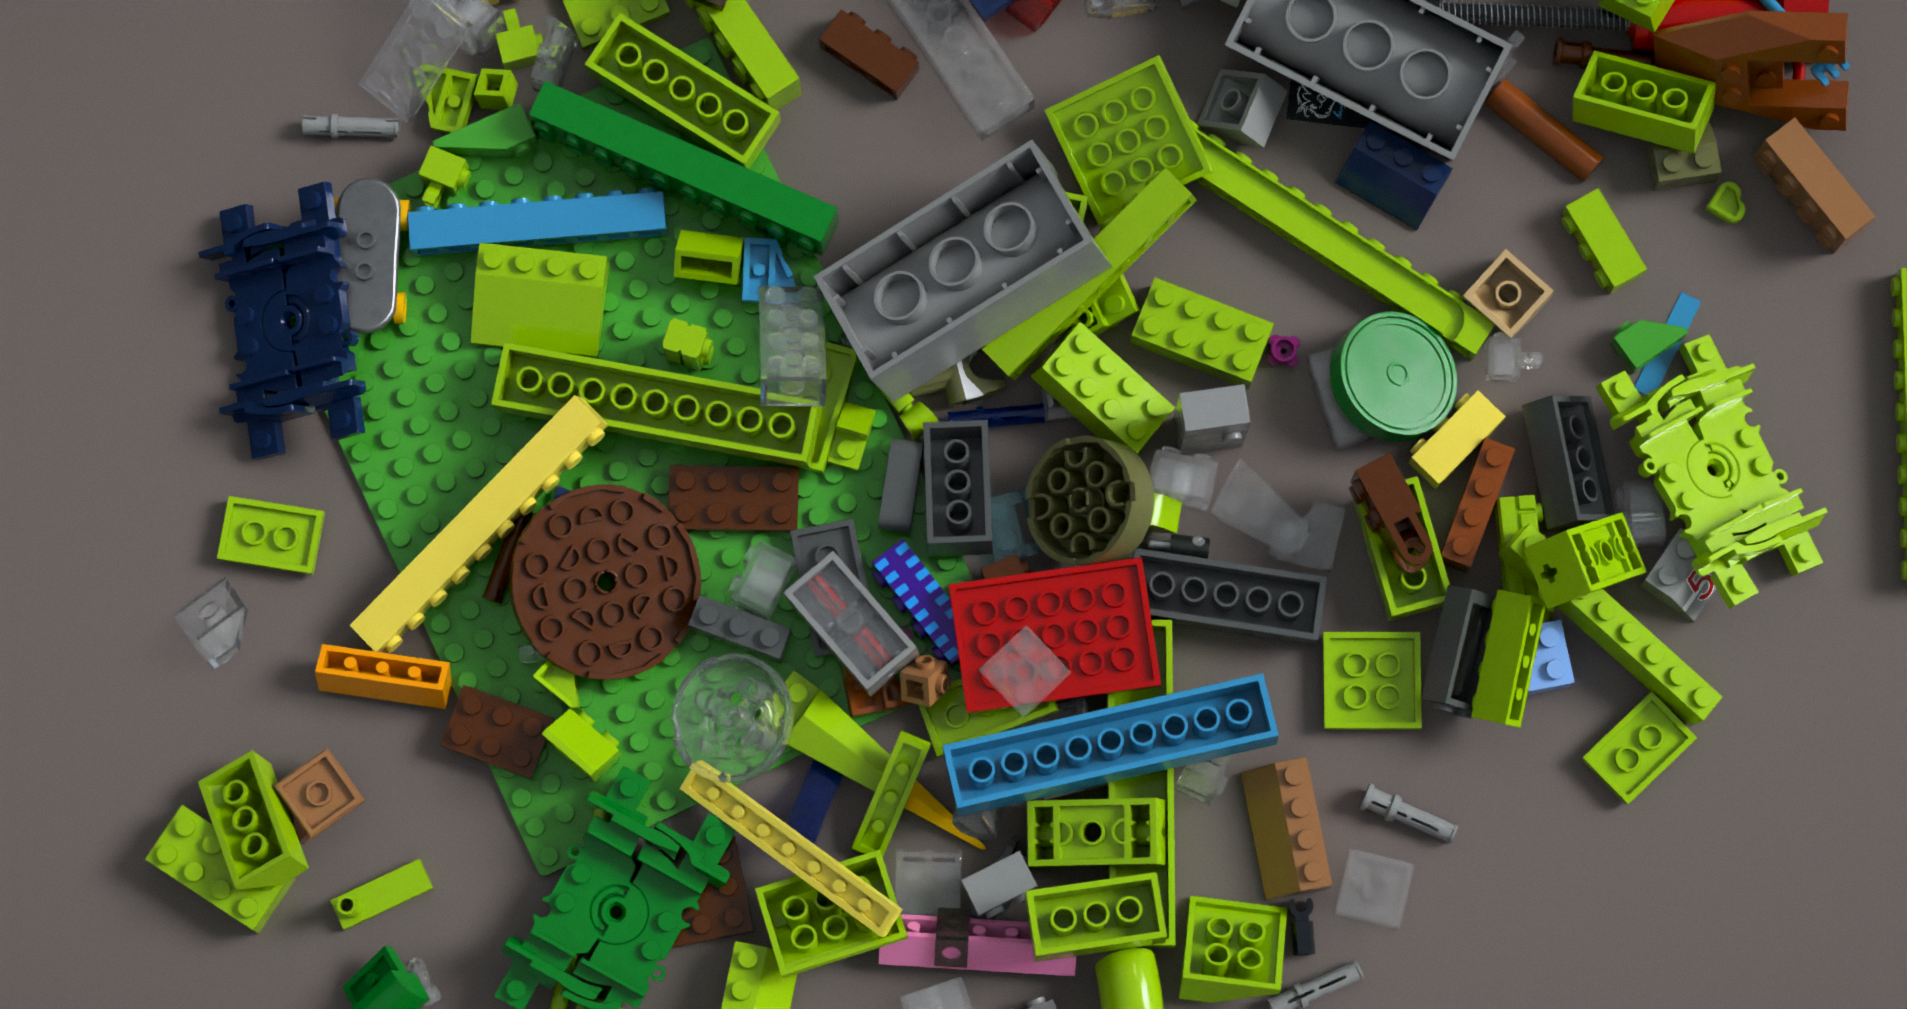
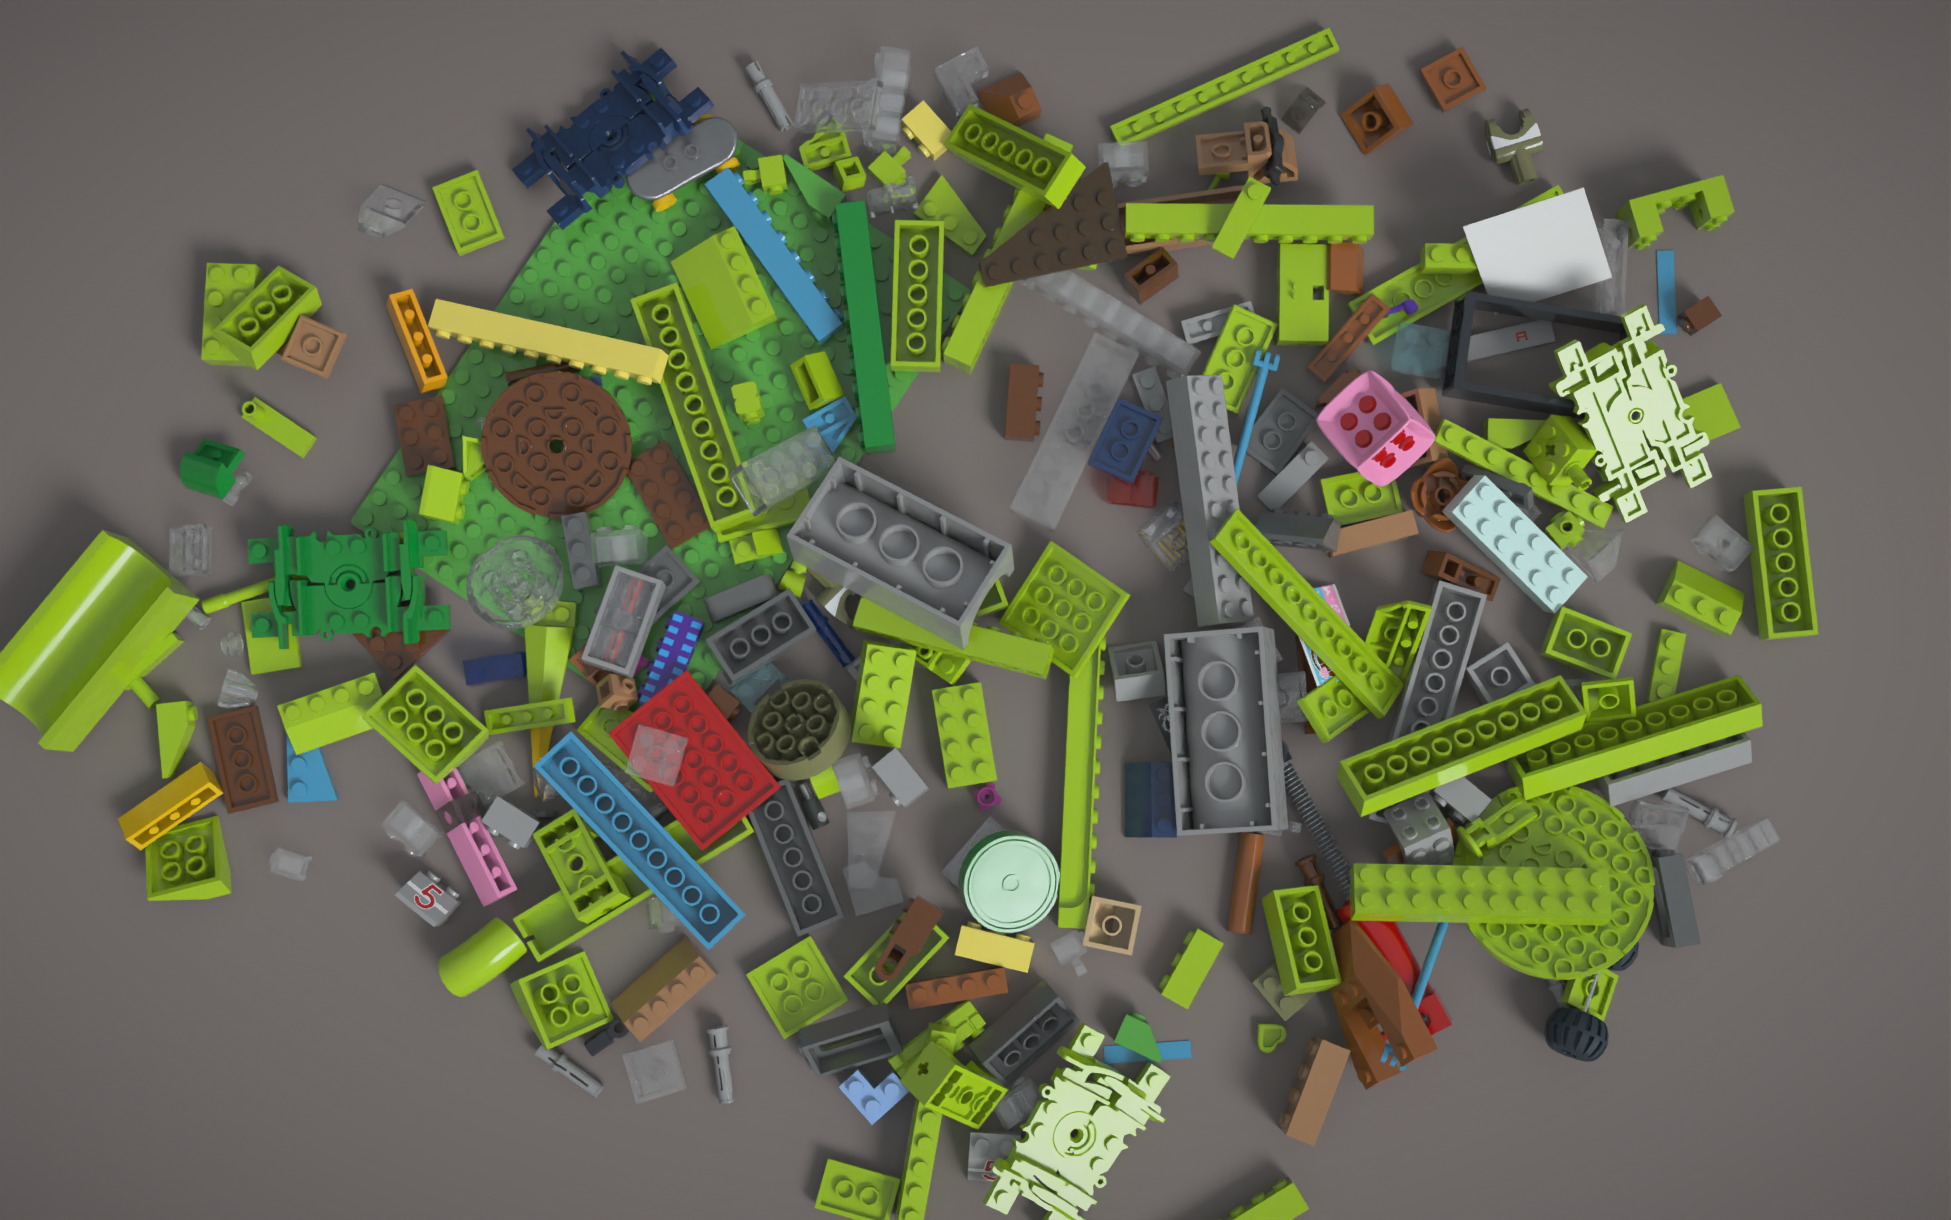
camera: 60 degrees right, 5 degrees up
(794, 852) = (450, 679): light yellow plate -> none
(1095, 916) = (519, 899): lime brick -> none
(1508, 658) = (857, 1072): lime brick -> none

